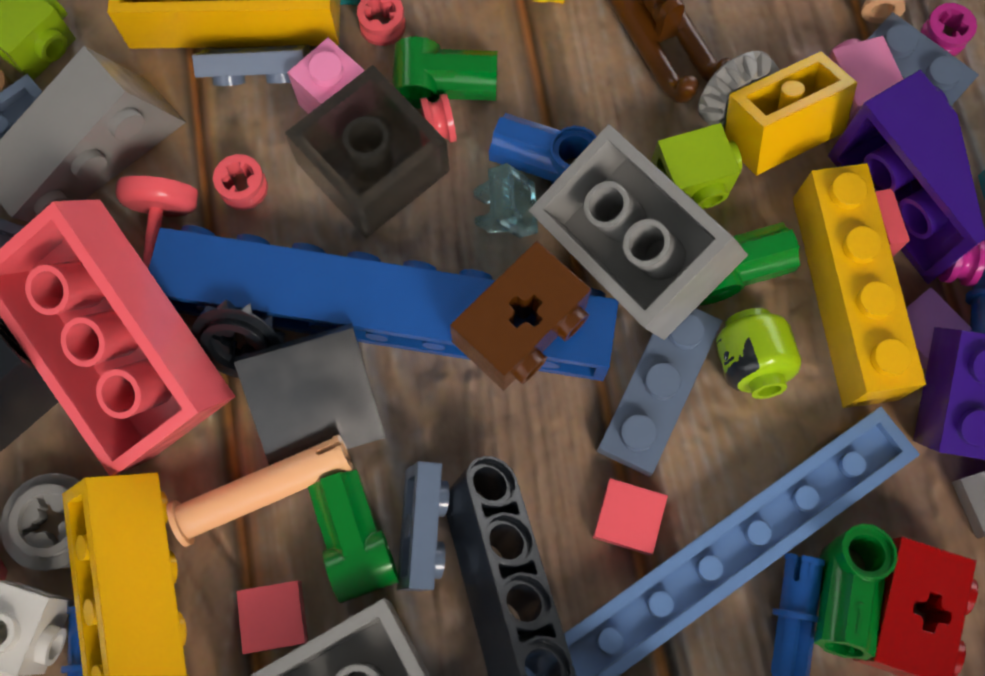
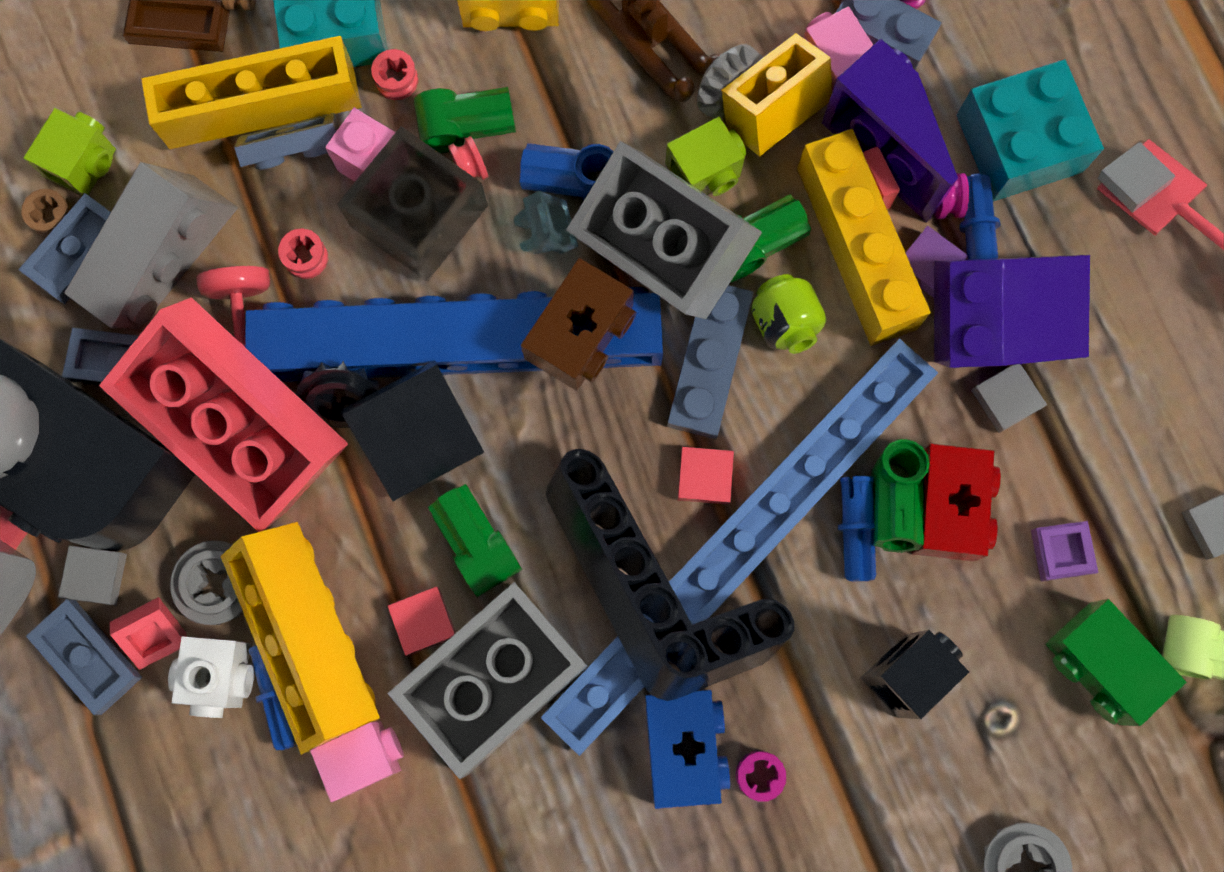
camera: 10 degrees left, 5 degrees up
(257, 489) = (385, 518): light nougat pin -> none
(423, 503) = (529, 499): sand blue plate -> none

